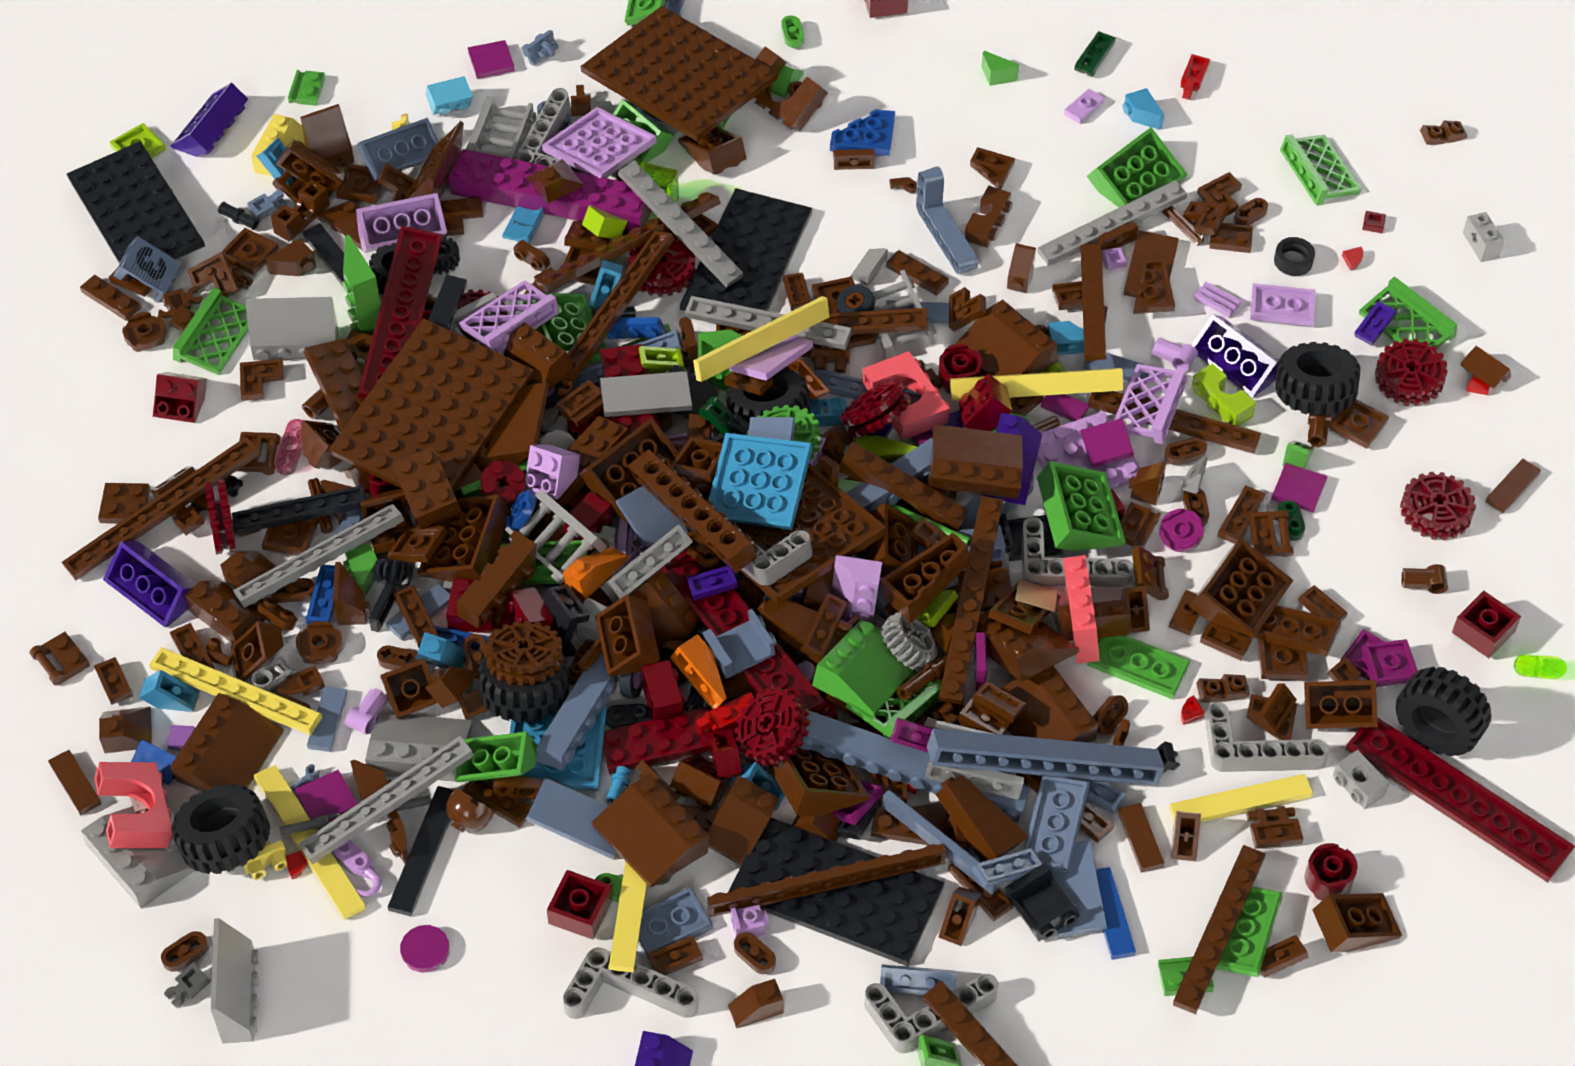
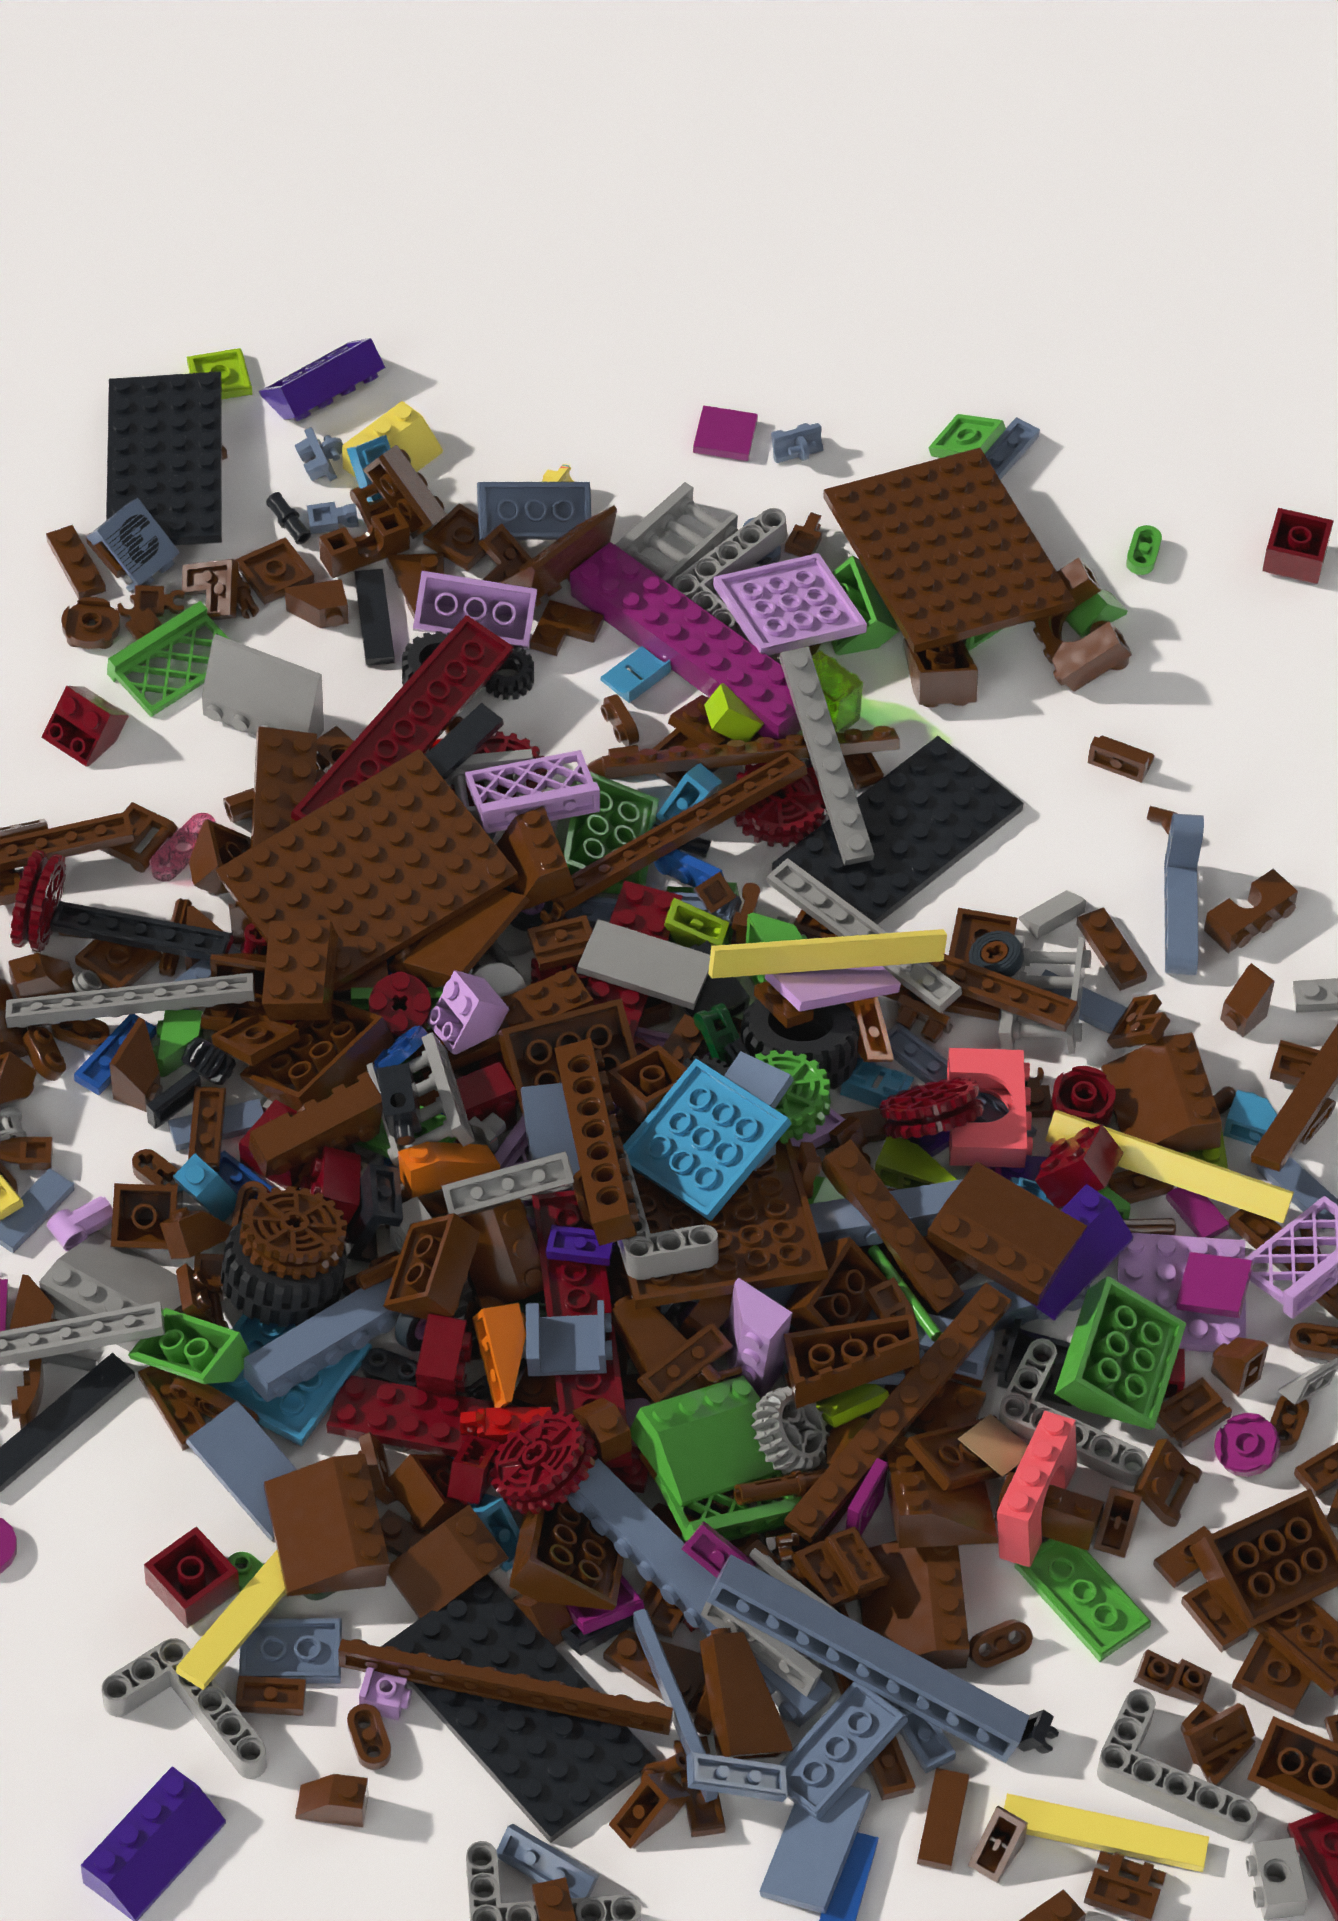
camera: 25 degrees right, 0 degrees up
(233, 485) = (82, 860): black plate -> none
(238, 166) = (321, 465): none -> sand blue hips
(255, 373) = (191, 734): reddish brown plate -> none
(278, 557) = (86, 981): none -> light grey plate
(306, 87) = (470, 380): bright green plate -> none
(319, 654) = (79, 1126): reddish brown plate -> none
(327, 135) = (448, 459): reddish brown slope -> none
(361, 290) = (363, 675): bright green slope -> none
(449, 95) = (639, 462): medium azure brick -> none
(467, 812) = (125, 1401): reddish brown cylinder -> none
(477, 722) = (199, 1297): none -> reddish brown plate
(549, 540) = (400, 1102): none -> black torso
(555, 181) = (698, 633): reddish brown slope -> none
(619, 782) = (333, 1446): dark azure pin -> none
(662, 333) = (714, 892): none -> reddish brown plate
(796, 290) = (935, 906): reddish brown plate -> none
(799, 684) = (607, 1428): none -> reddish brown slope
(867, 133) = (1156, 732): blue plate -> none
(958, 880) = (673, 1765): none -> reddish brown arm
(992, 166) = (1301, 844): reddish brown wing -> none
(1041, 902) = (760, 1841): black panel -> none
(1122, 732) = (999, 1675): reddish brown tile -> none
(1191, 711) = (1112, 1687): red tile -> none

